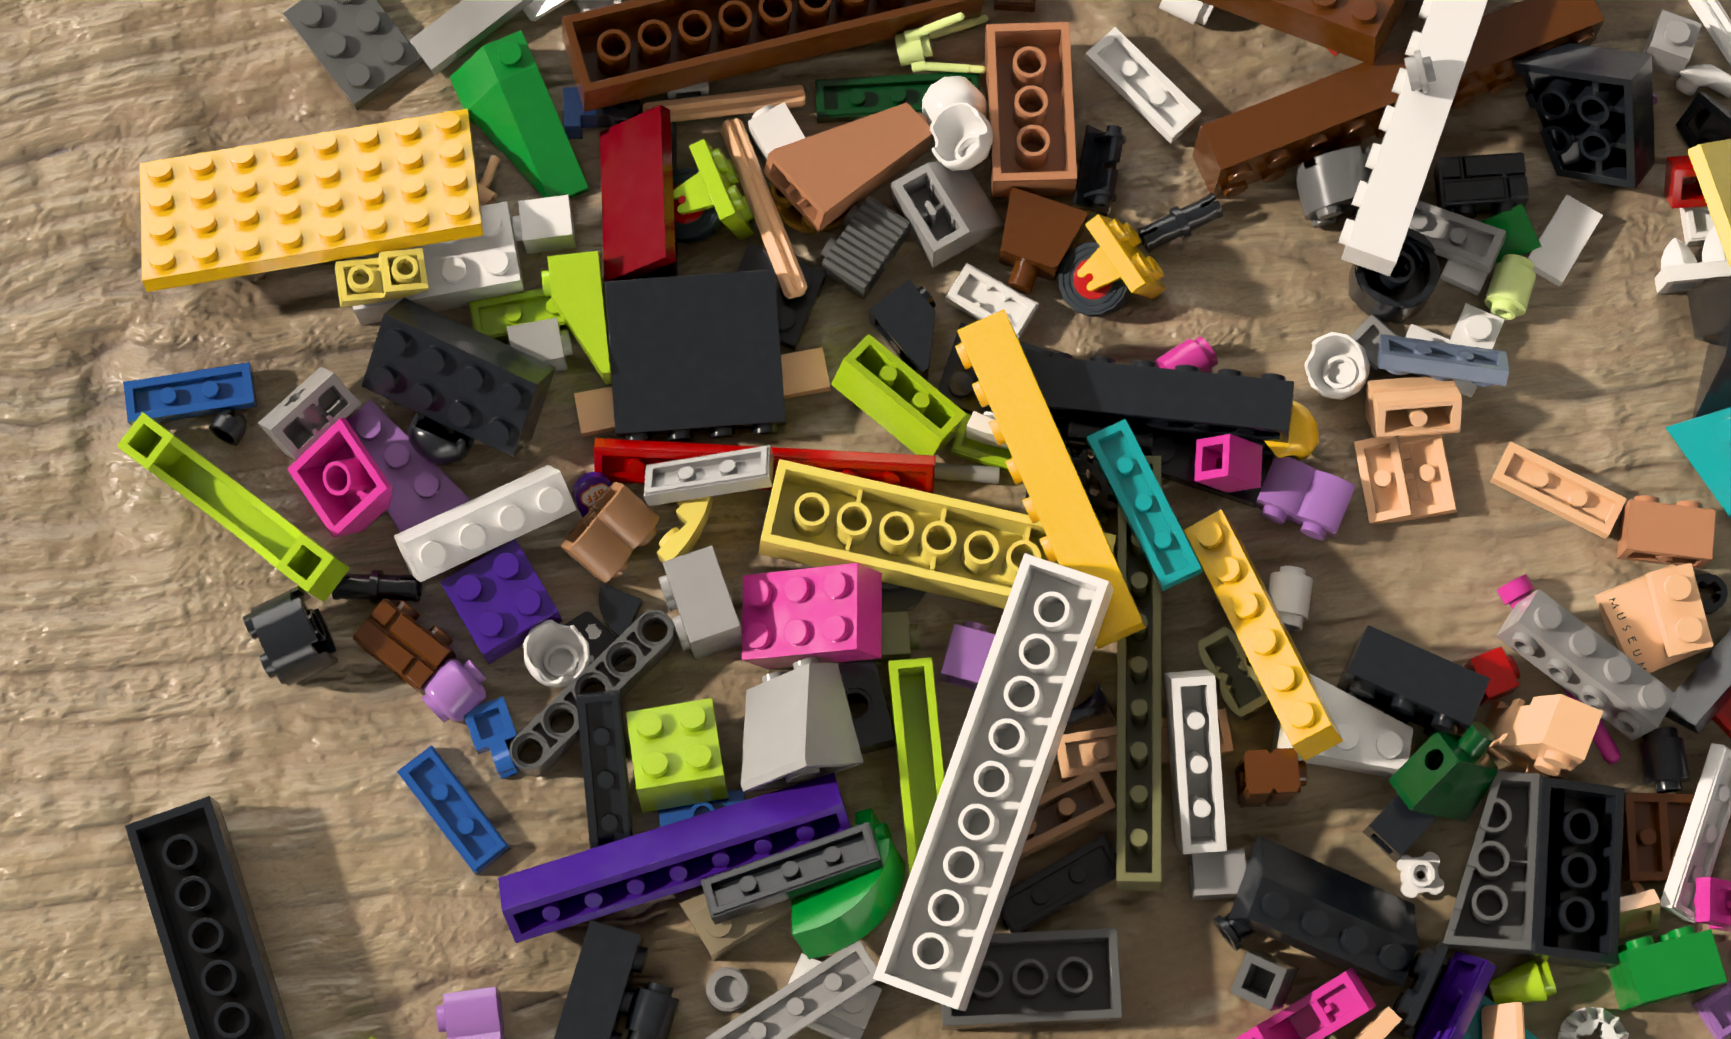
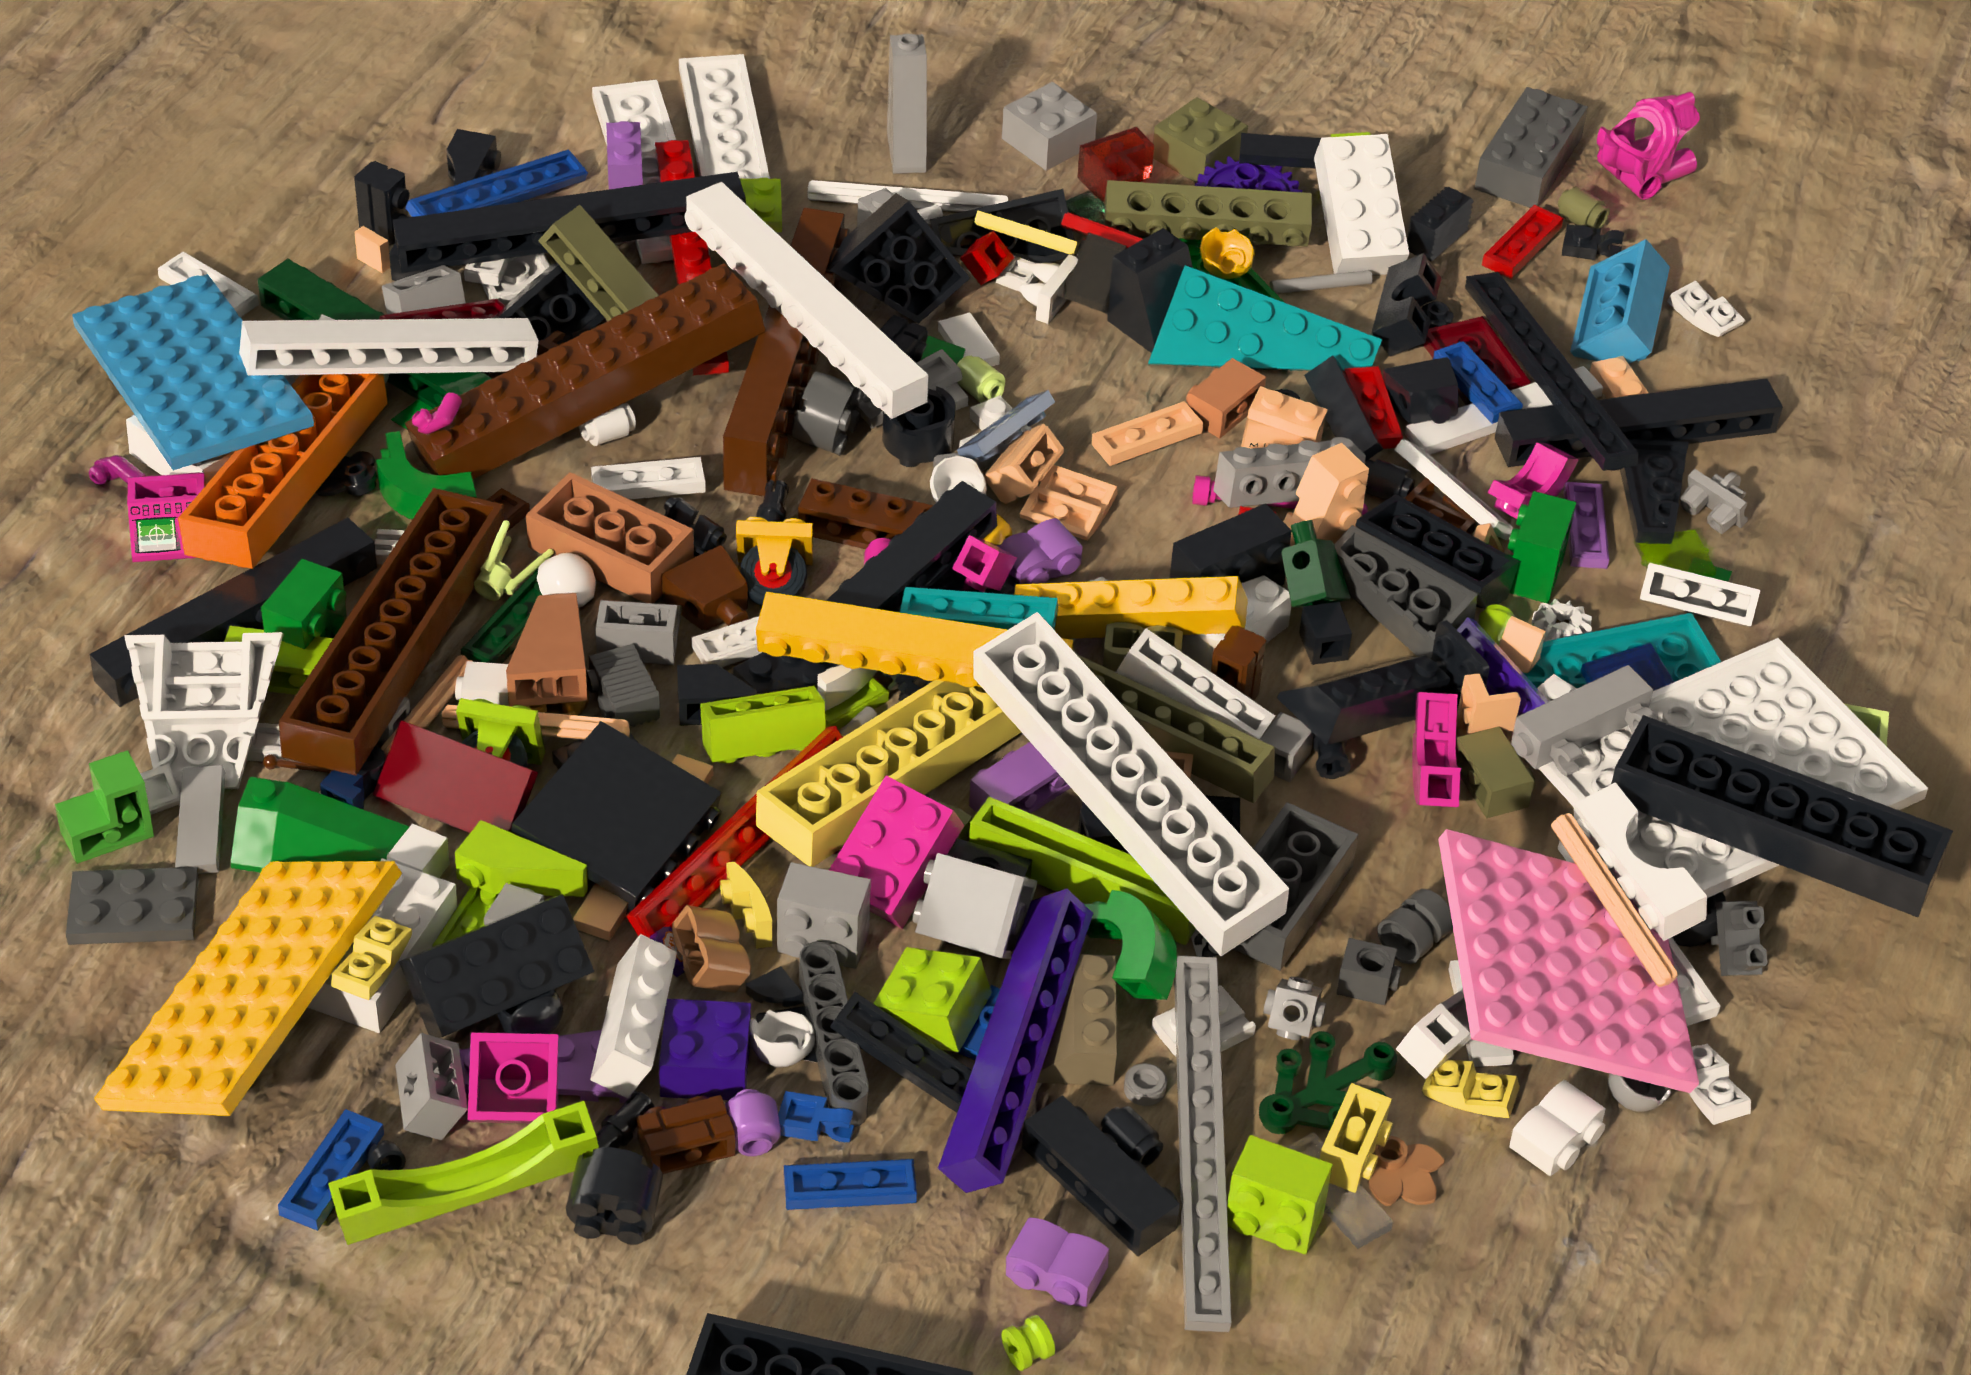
camera: 60 degrees left, 30 degrees down
(708, 475) = (724, 855): light grey tile -> none
(791, 873) = (1093, 959): black tile -> none
(961, 136) = (599, 569): white hair -> none
(1235, 307) = (854, 514): none -> reddish brown brick
(1264, 980) = (1387, 755): dark grey brick -> none
(1411, 883) = (1370, 646): white plate -> none
(1419, 71) = (805, 286): light grey plate -> none

